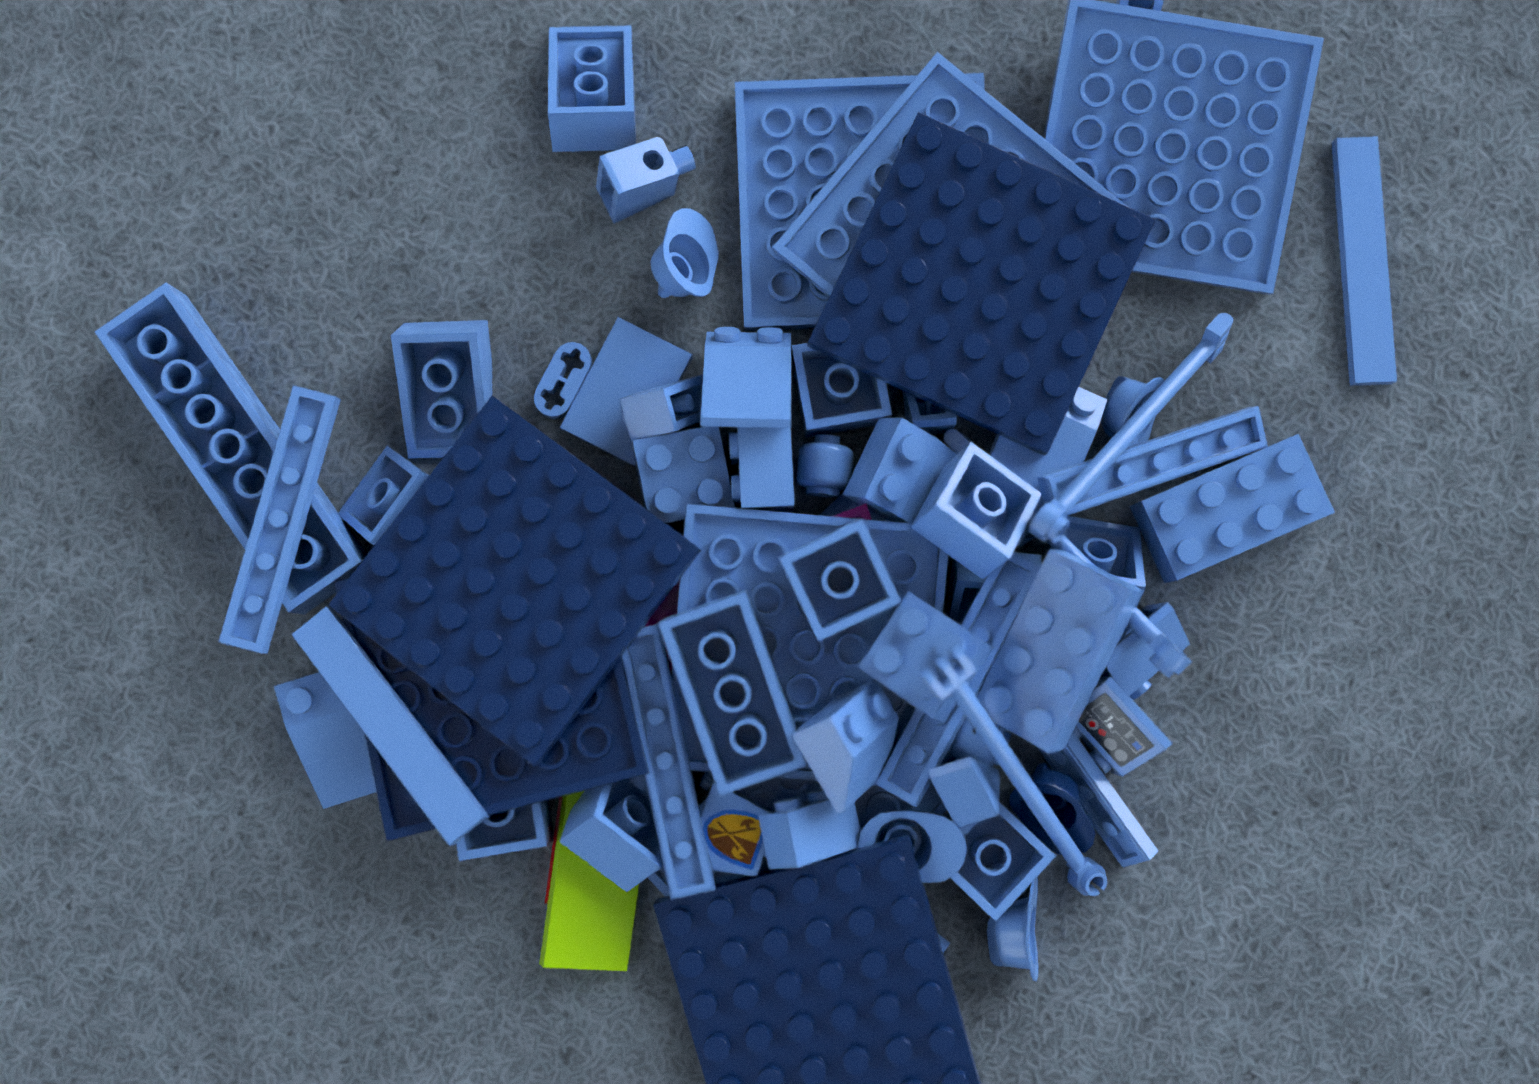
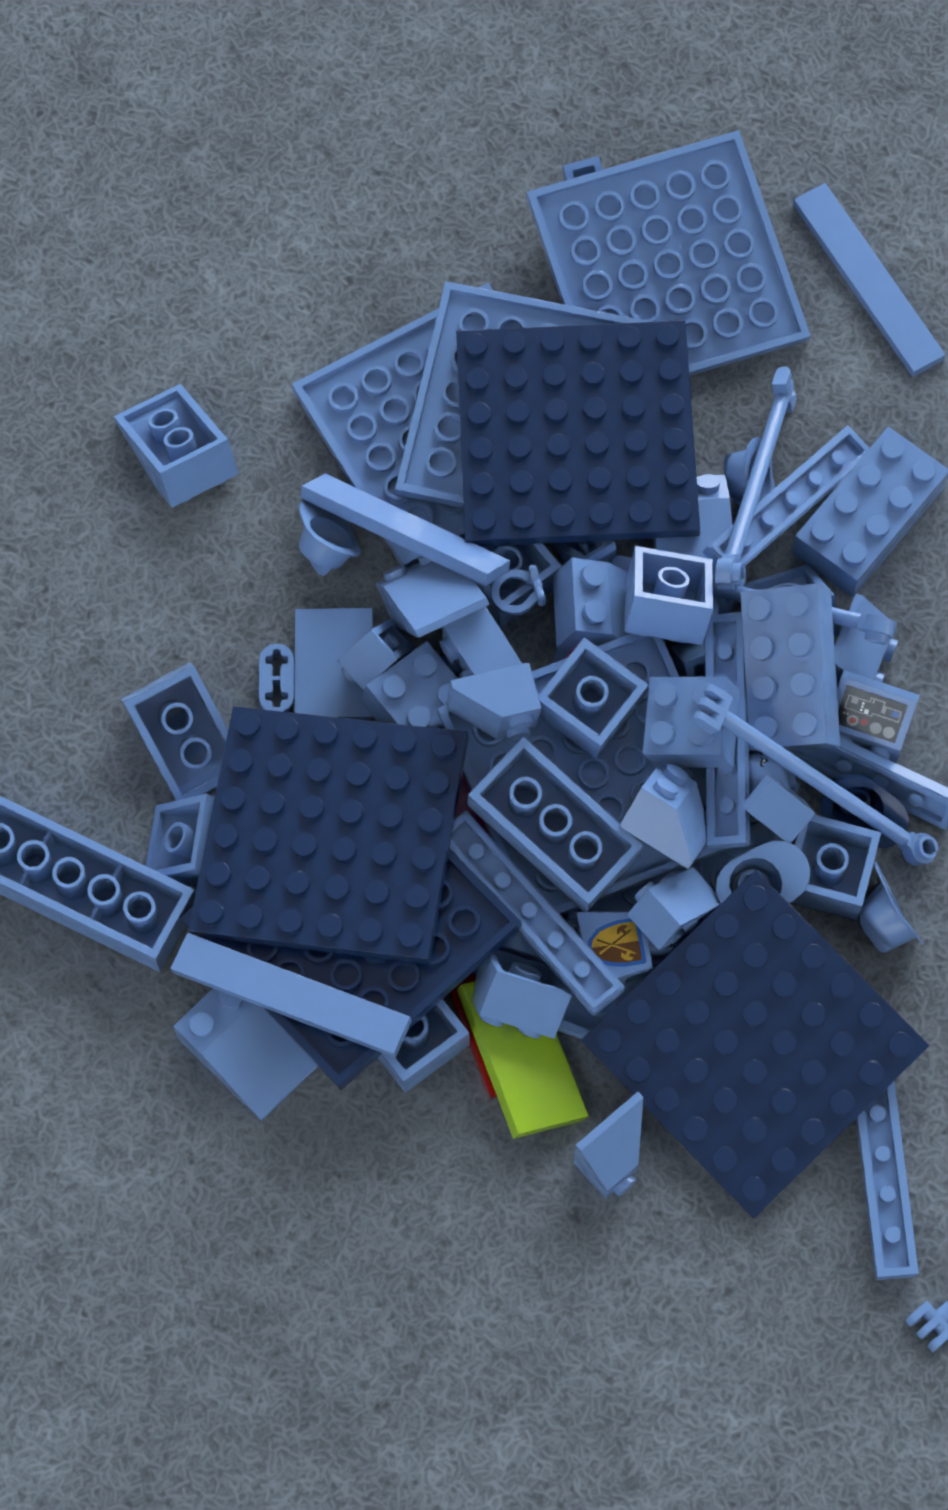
camera: 25 degrees left, 15 degrees down
(279, 520) = (113, 885): medium blue plate -> none
(627, 1025) = (612, 1149): none -> medium blue slope
(640, 176) = (255, 492): medium blue torso -> none
(743, 541) = (497, 701): none -> medium blue slope
(759, 298) = (405, 529): none -> medium blue tile
(824, 466) = (531, 638): medium blue head -> none
(854, 412) = (536, 597): none -> medium blue piece

